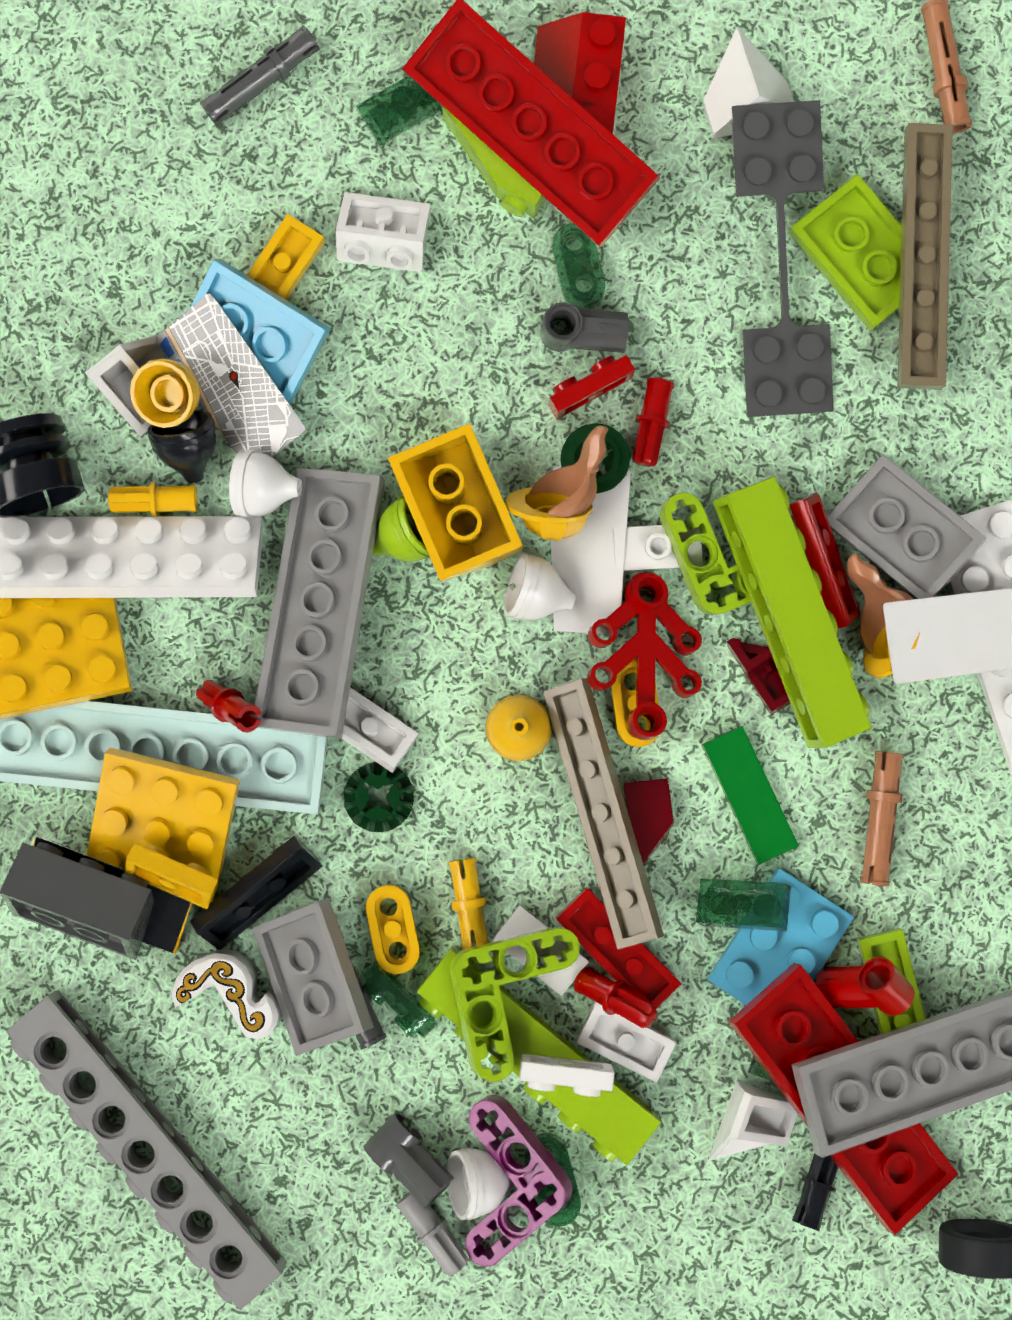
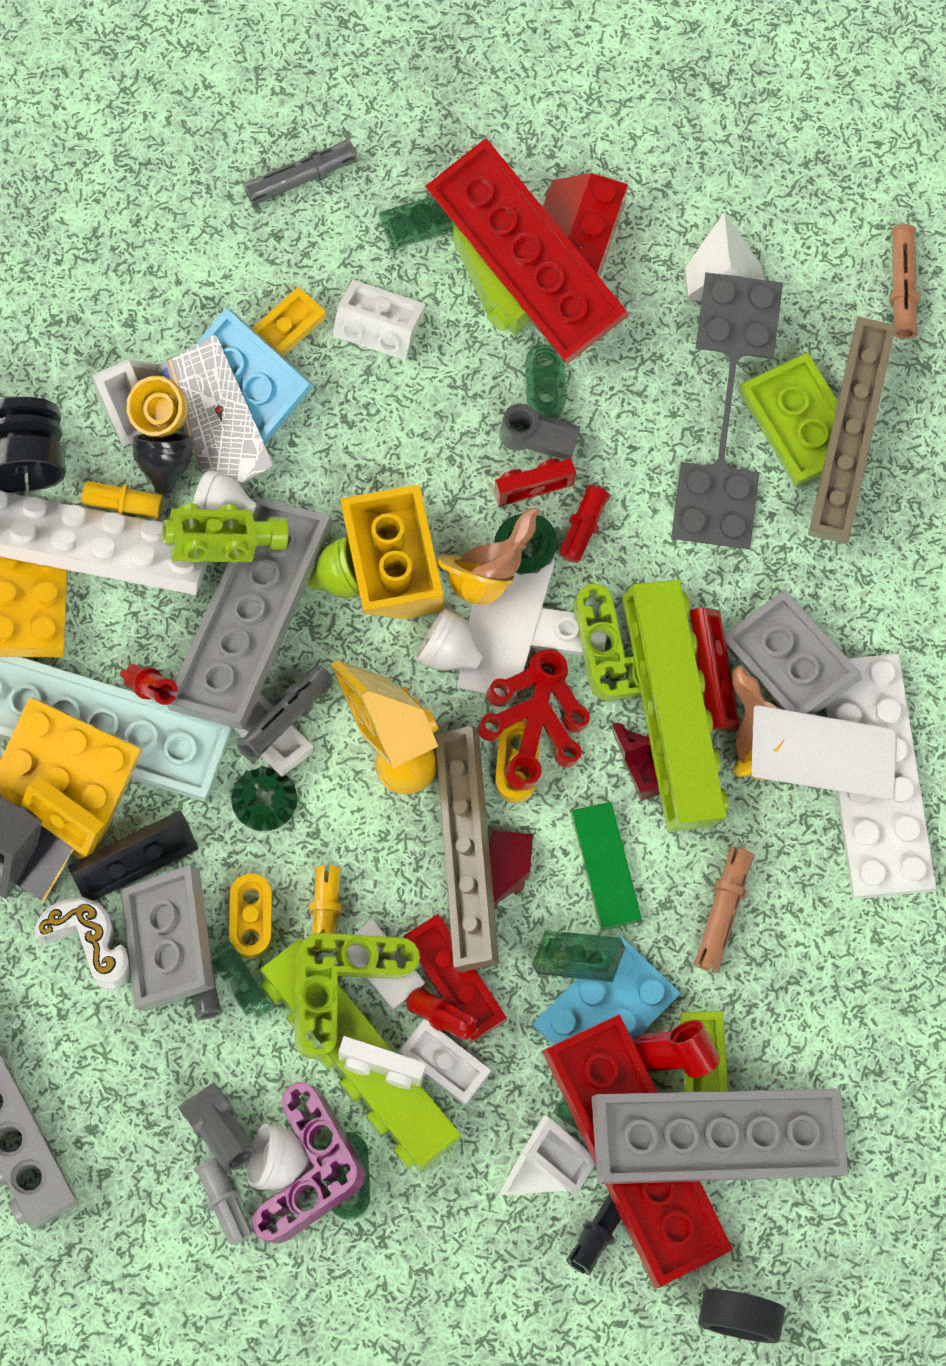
camera: 10 degrees right, 15 degrees down
(267, 528) = (220, 534): none -> lime brick
(389, 690) = (296, 702): none -> dark grey pin
(493, 693) = (386, 714): none -> yellow slope

